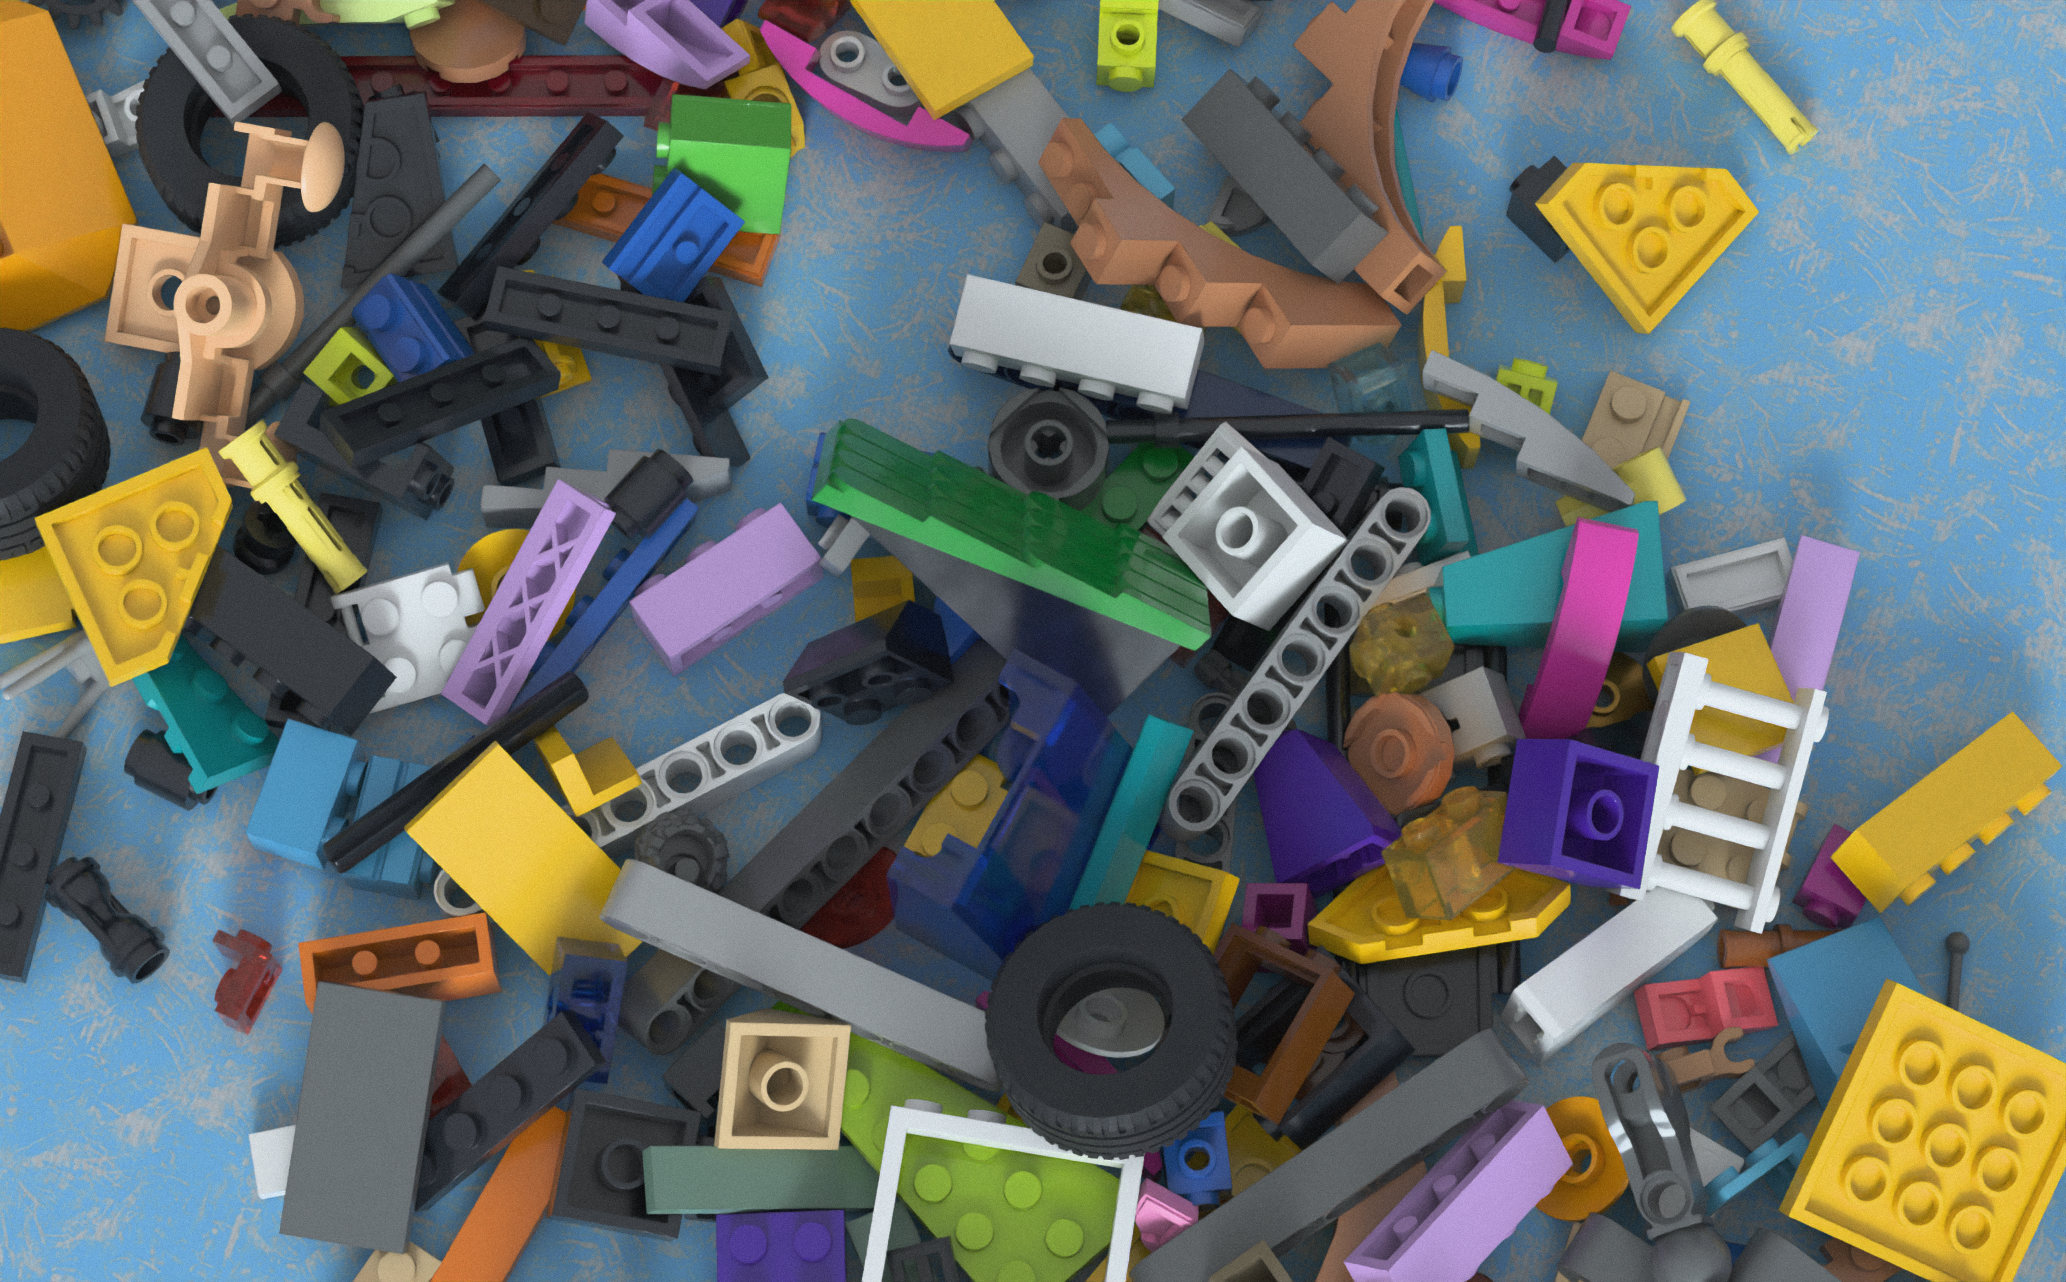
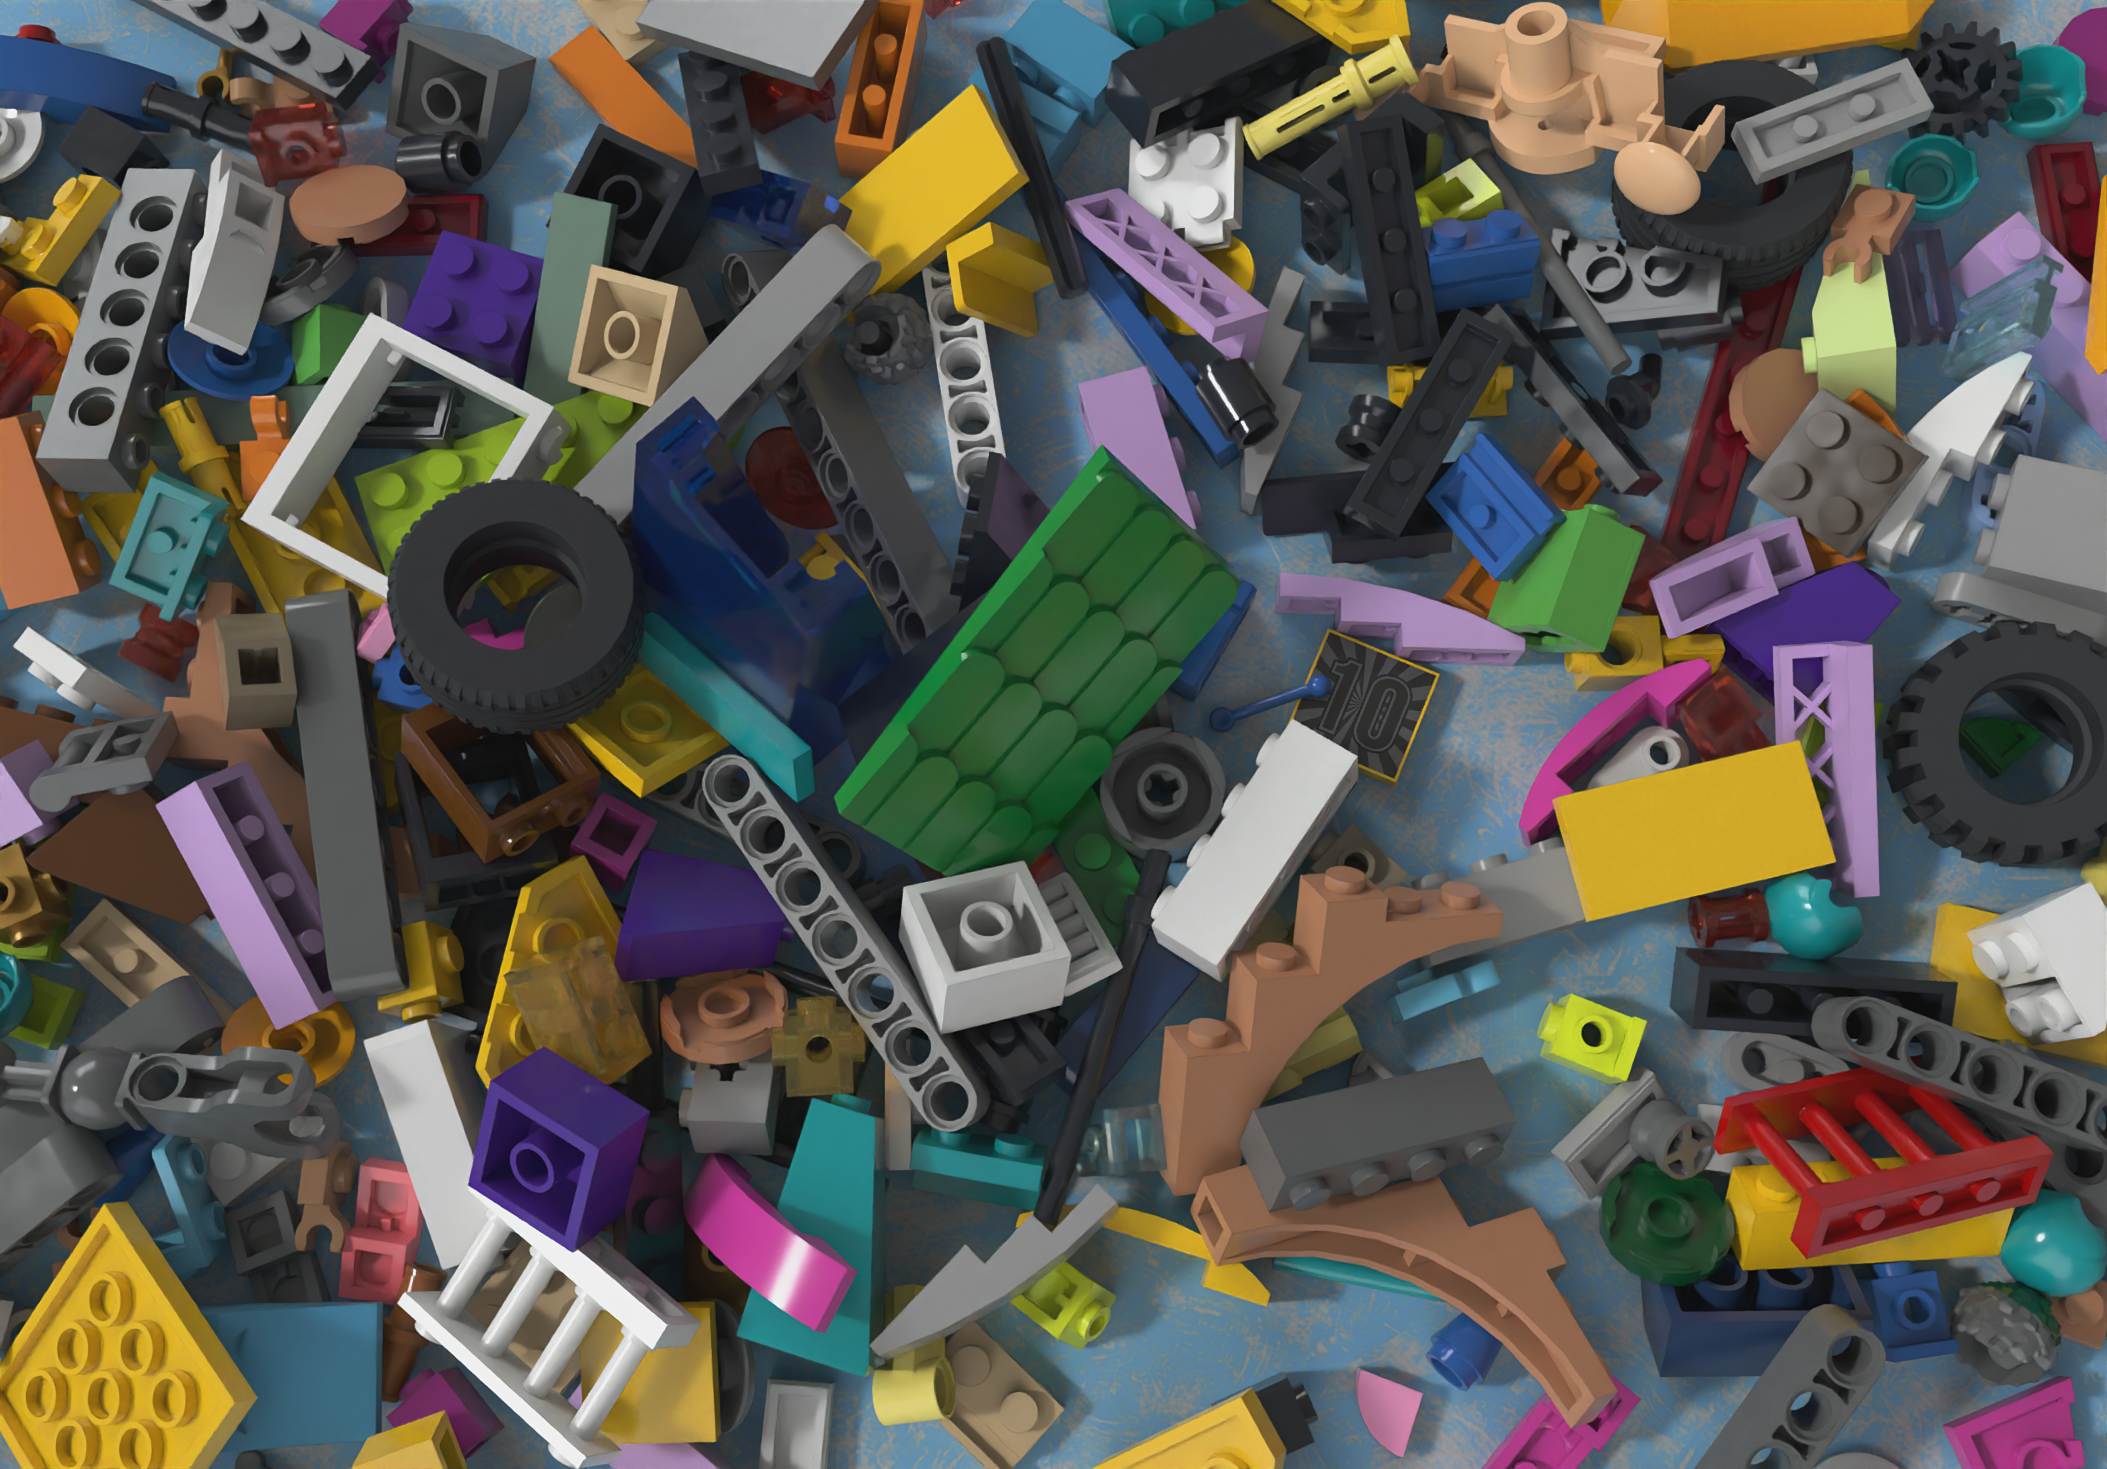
camera: 115 degrees right, 5 degrees up
(508, 163) = (1631, 396): none -> black plate
(615, 387) = (1368, 427): none -> black wheel
(801, 296) = (1417, 625): none -> lavender slope
(891, 322) = (1371, 703): none -> tile
(946, 438) = (1224, 719): none -> blue hinge
(1453, 1031) = (433, 970): none -> yellow bracket
(1501, 120) = (1387, 1409): none -> bright pink tile

